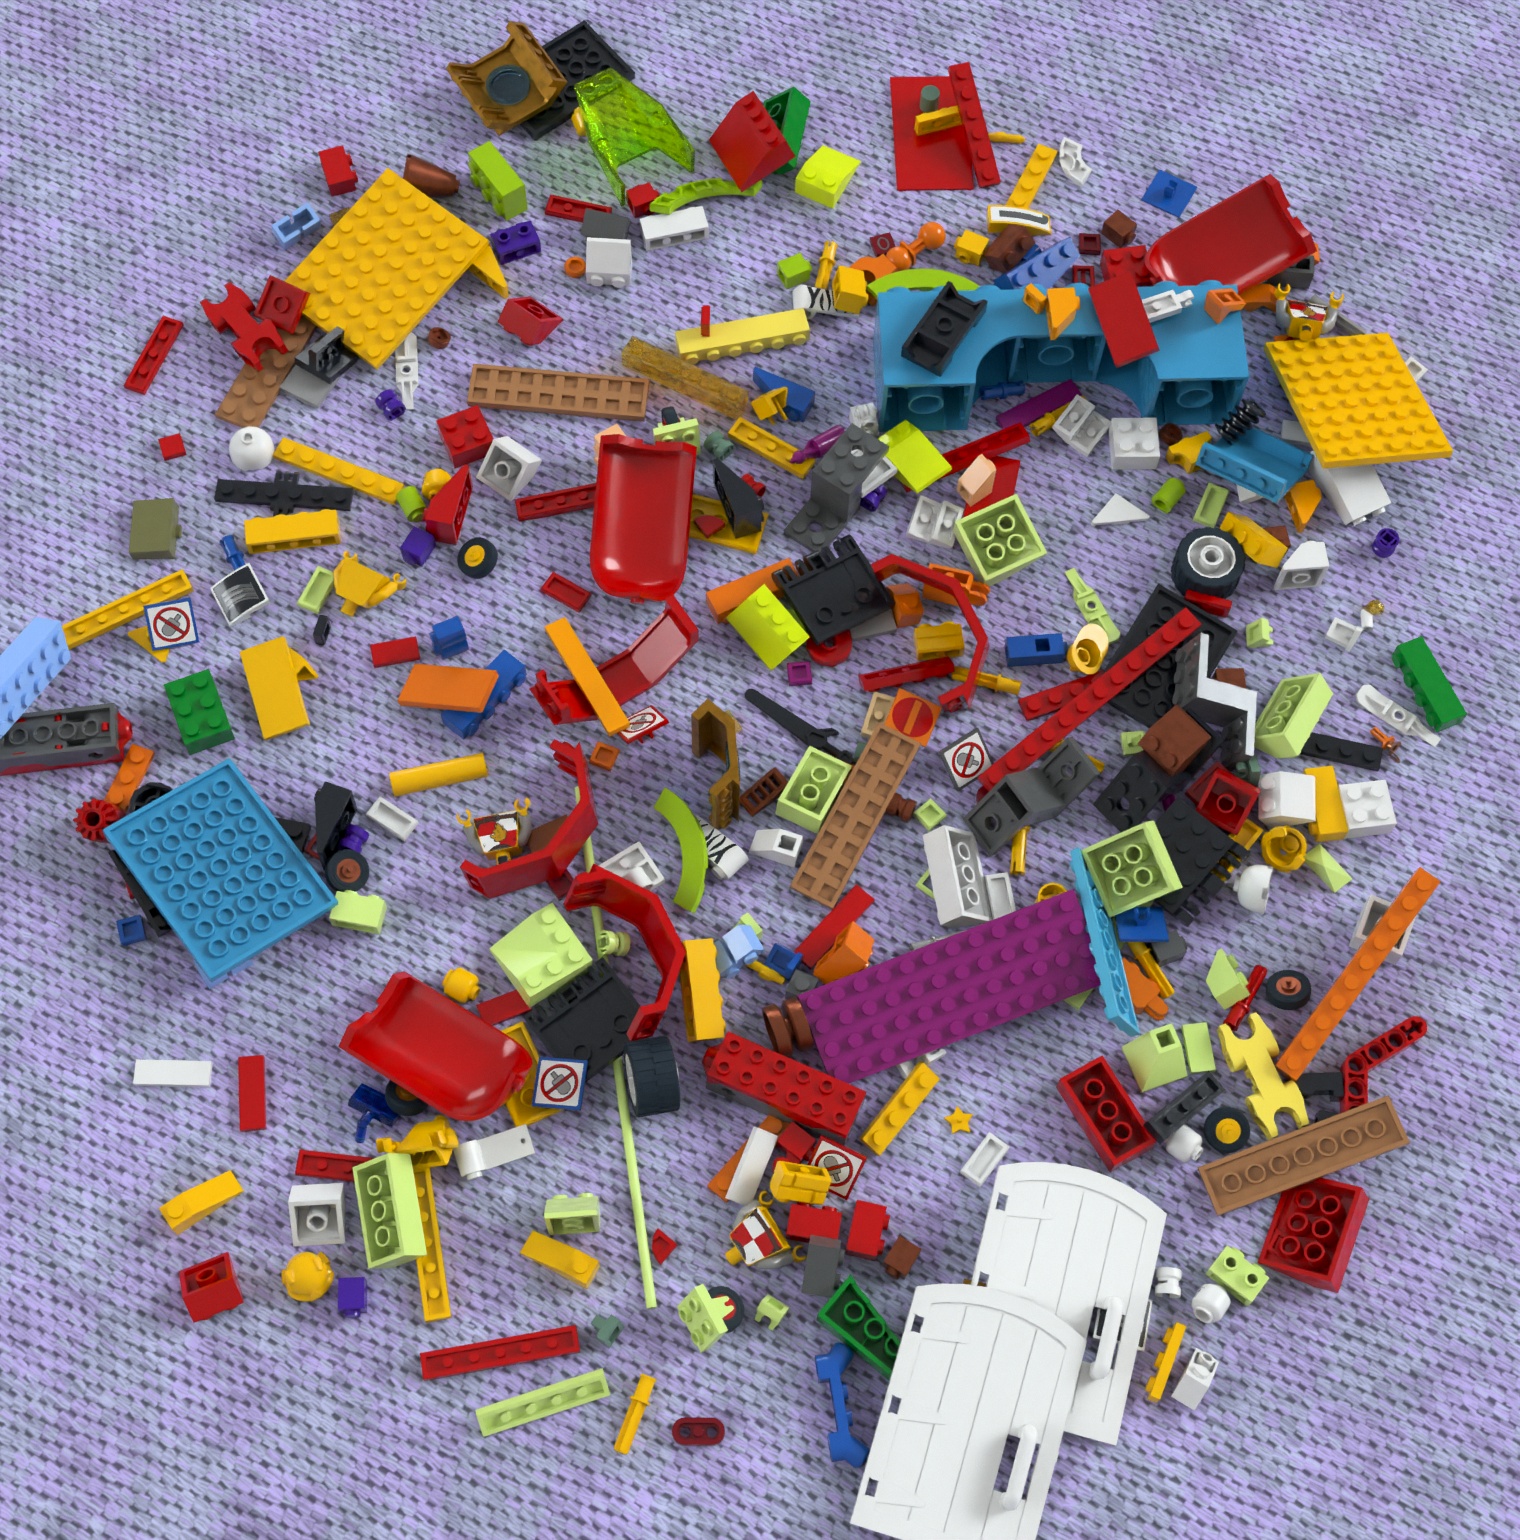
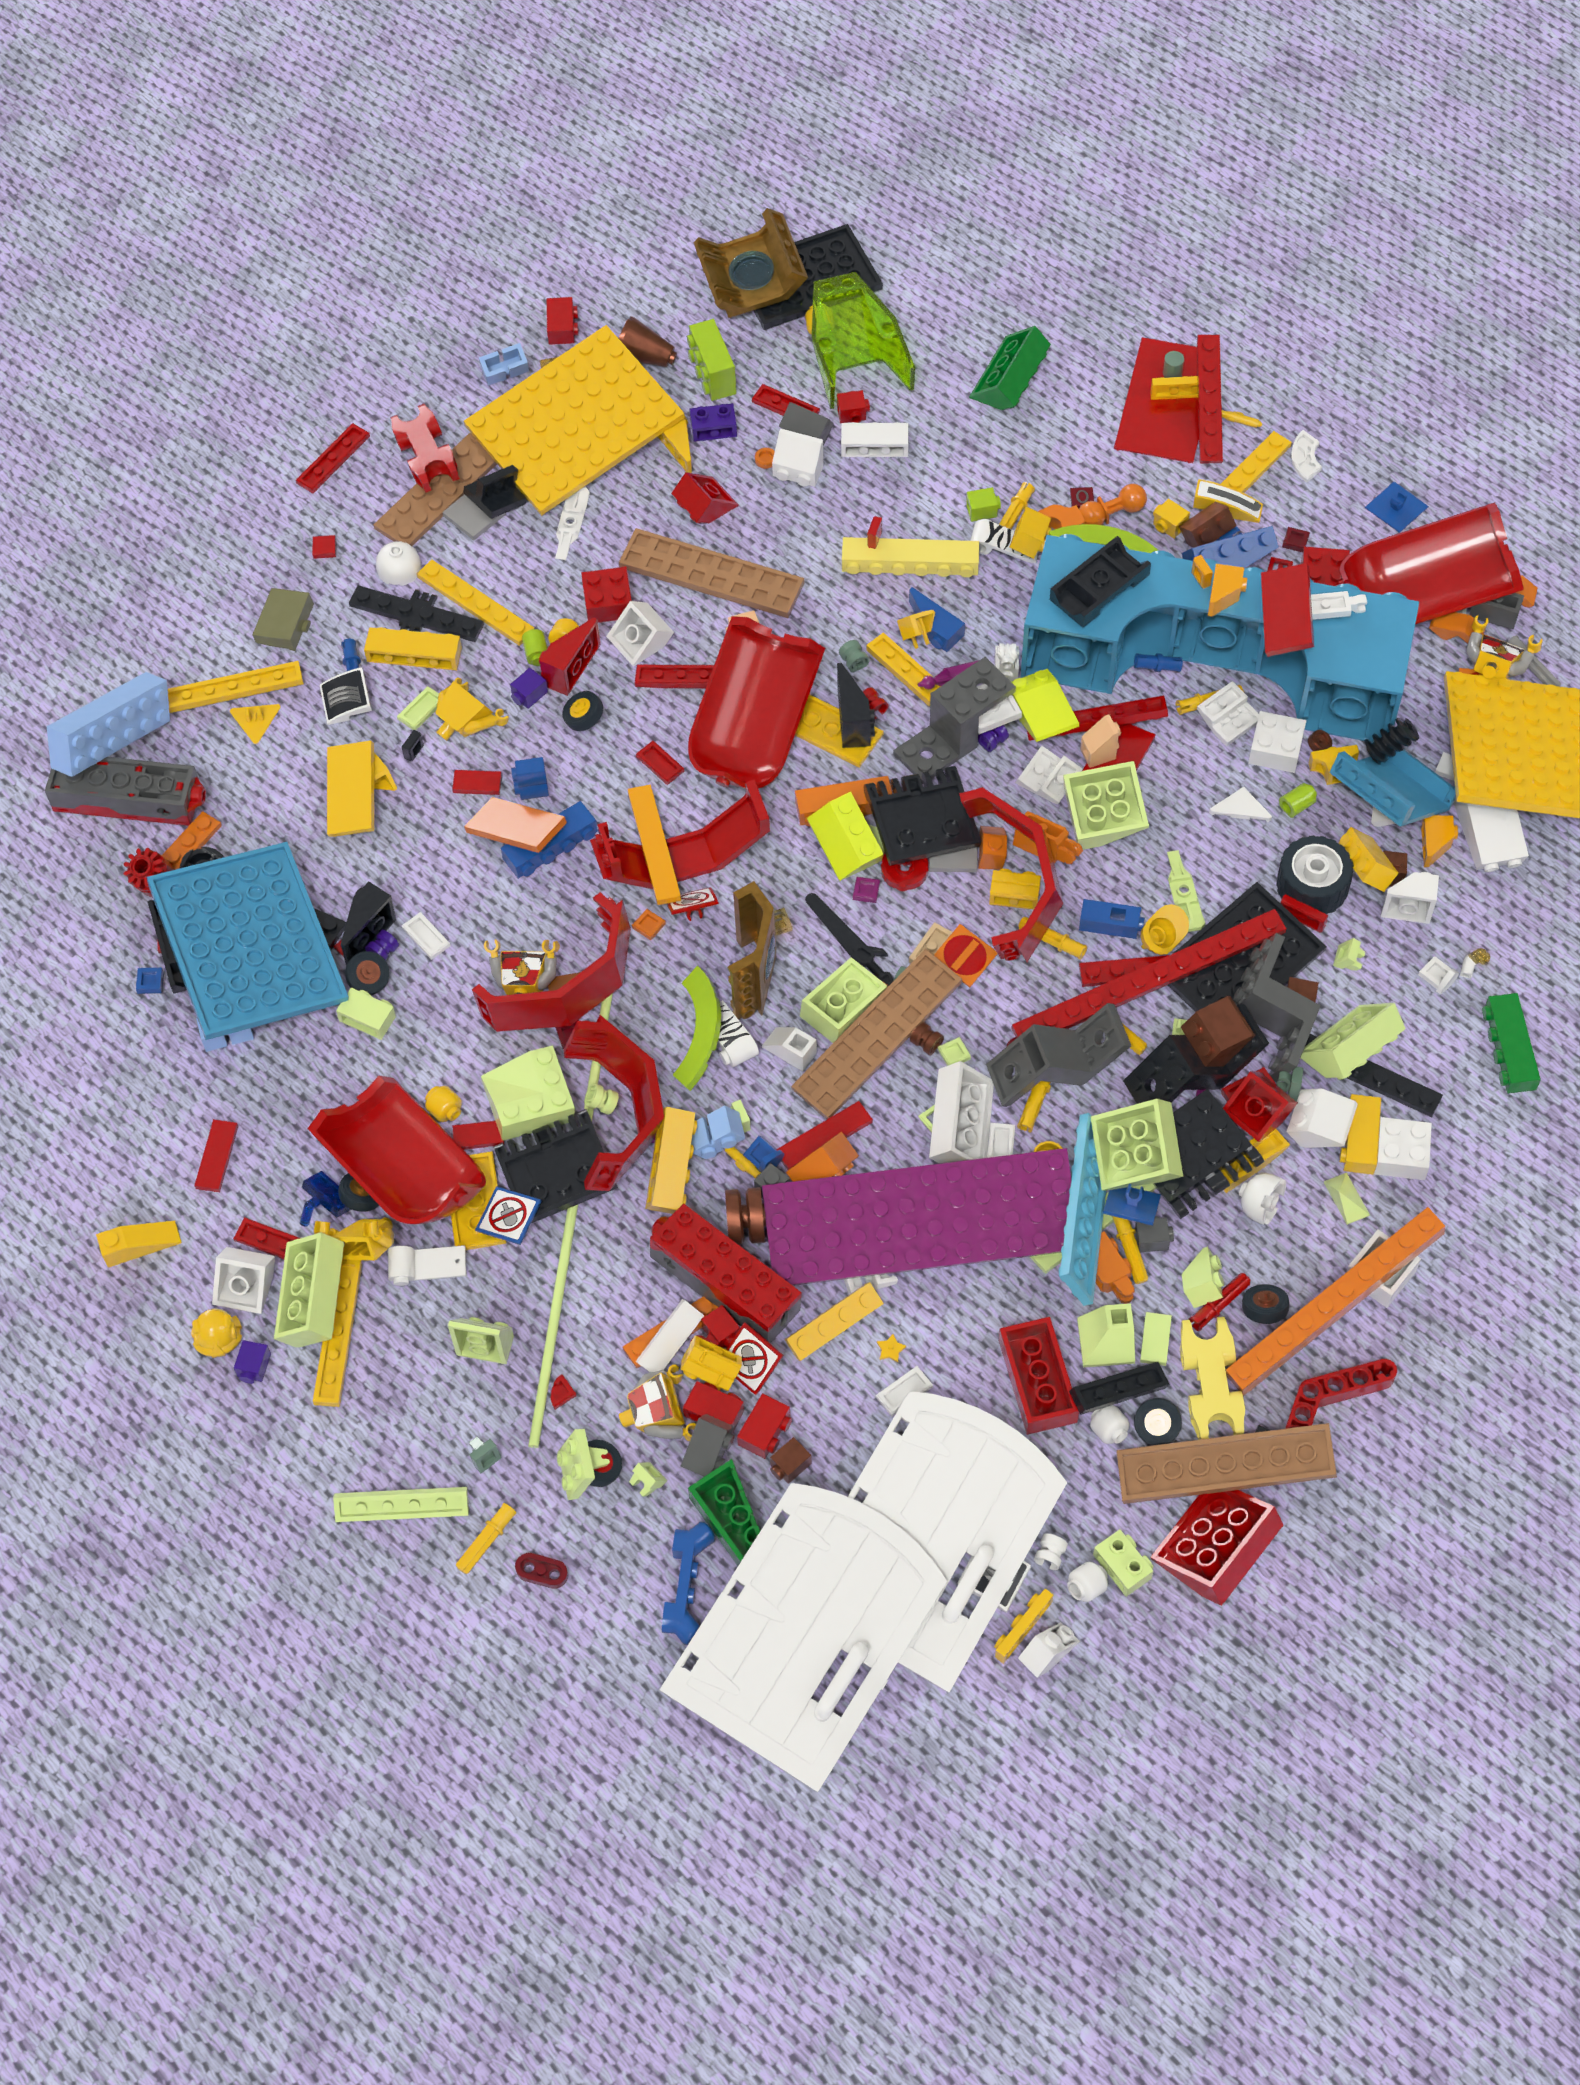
camera: 20 degrees right, 5 degrees down
(171, 623) = (271, 708): piece -> none
(172, 1073) = (148, 1119): white tile -> none
(199, 712) = (273, 795): green brick -> none
(210, 1287) = (123, 1321): red slope -> none
(281, 304) = (466, 433): red tile -> none
(390, 405) = (543, 549): dark purple wheel -> none
(438, 338) = (610, 497): copper tile -> none
(438, 774) = (482, 904): yellow brick -> none
(499, 1353) = (375, 1449): red plate -> none
(561, 1259) = (461, 1379): yellow slope -> none
(635, 866) = (646, 1033): white plate -> none
(652, 1076) = (597, 1228): black wheel -> none
(677, 429) = (817, 630): yellowish green plate -> none
(685, 378) = (840, 584): clear yellow brick -> none
(696, 190) = (915, 407): lime tile -> none
(709, 525) = (819, 728): red tile -> none
(750, 142) = (975, 371): red slope -> none
(758, 786) = (799, 982): copper slope -> none
(825, 176) = (1044, 419): neon yellow slope -> none
(912, 672) = (981, 913): red plate -> none
(966, 759) = (1005, 1005): piece -> none
(1036, 407) = (1188, 686): magenta tile -> none
(1119, 229) = (1330, 530): copper brick -> none
(1211, 505) = (1340, 819): yellowish green tile -> none
(1221, 302) = (1395, 612): orange slope -> none
(1290, 841) = (1300, 1157): yellow helmet -> none
(1321, 1084) = (1268, 1402): black leg -> none
(1381, 546) = (1511, 895): dark purple wheel -> none
(1385, 709) = (1459, 1057): white piece -> none
(1388, 743) = (1450, 1091): piece -> none

